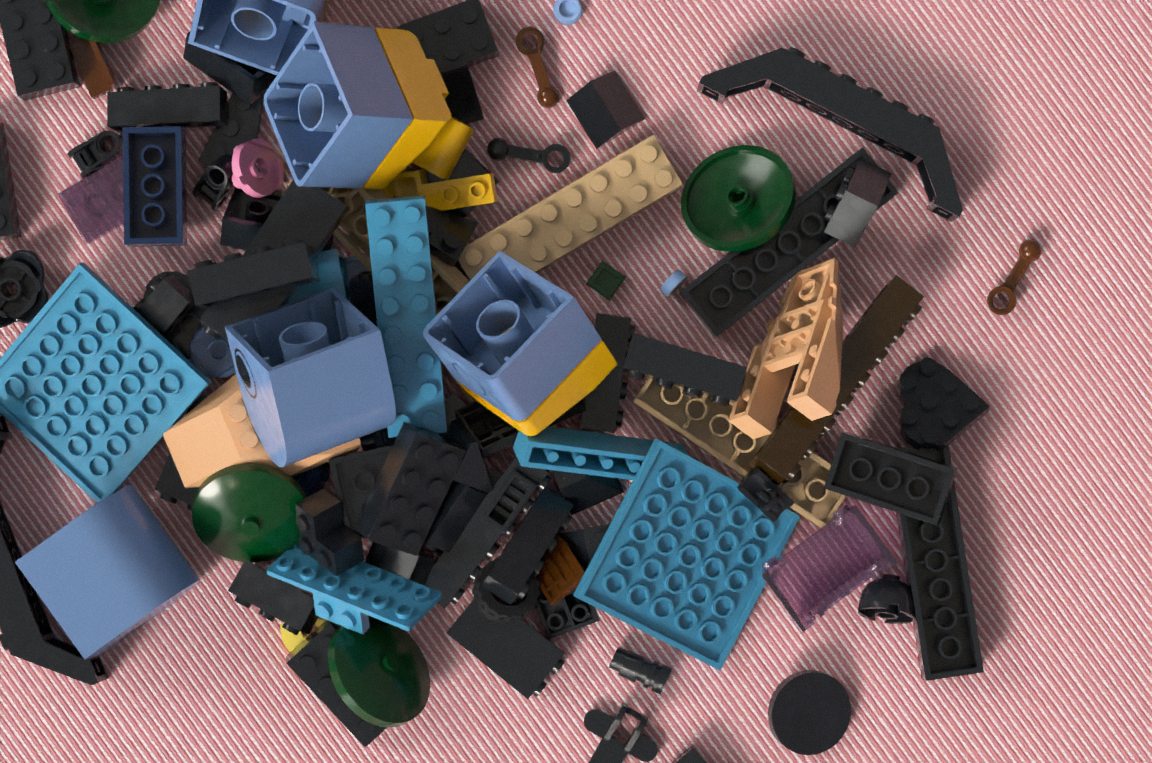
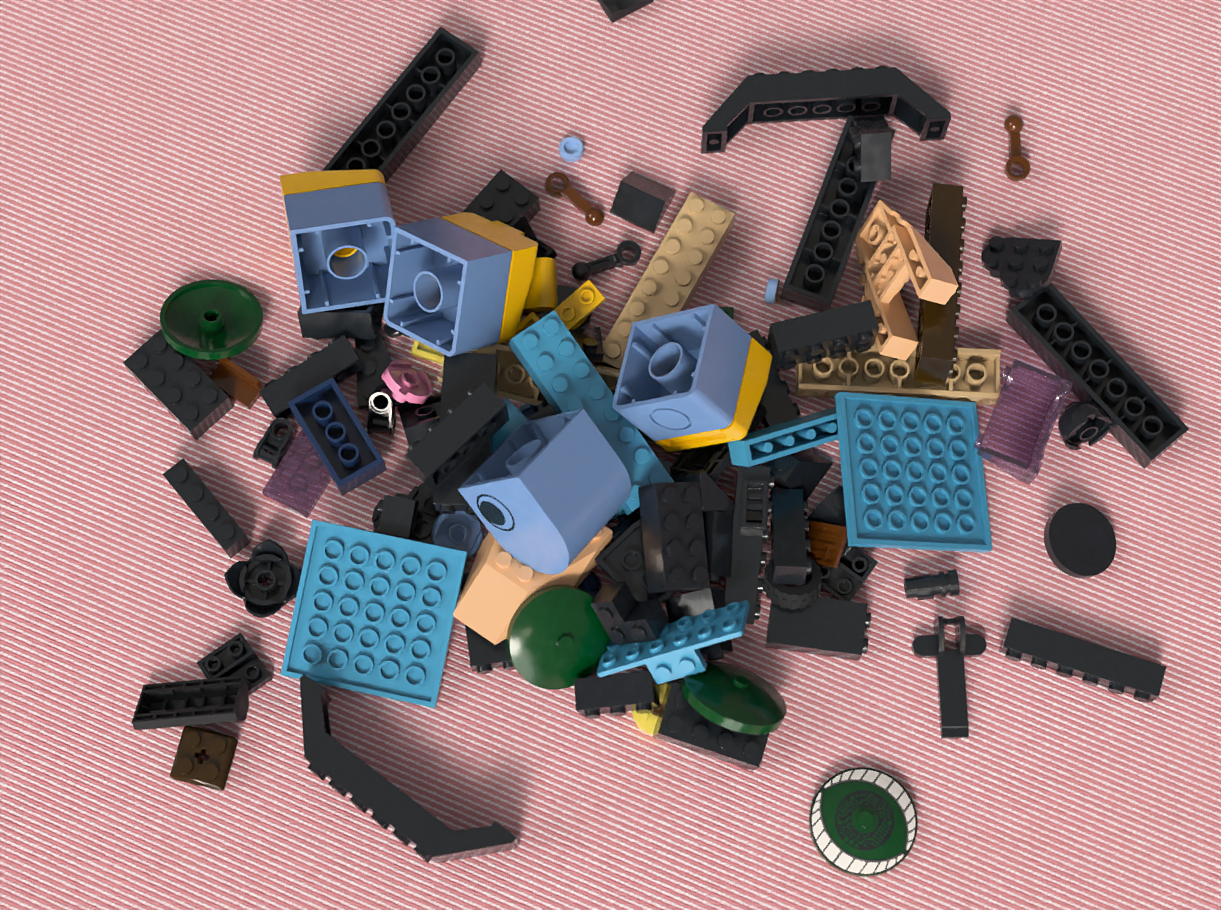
camera: 35 degrees left, 15 degrees down
(108, 572) = (474, 743): medium blue brick -> none
(738, 198) = (782, 201): dark green dish -> none
(765, 493) = (942, 390): black hips -> none
(890, 478) = (1027, 323): black brick -> none

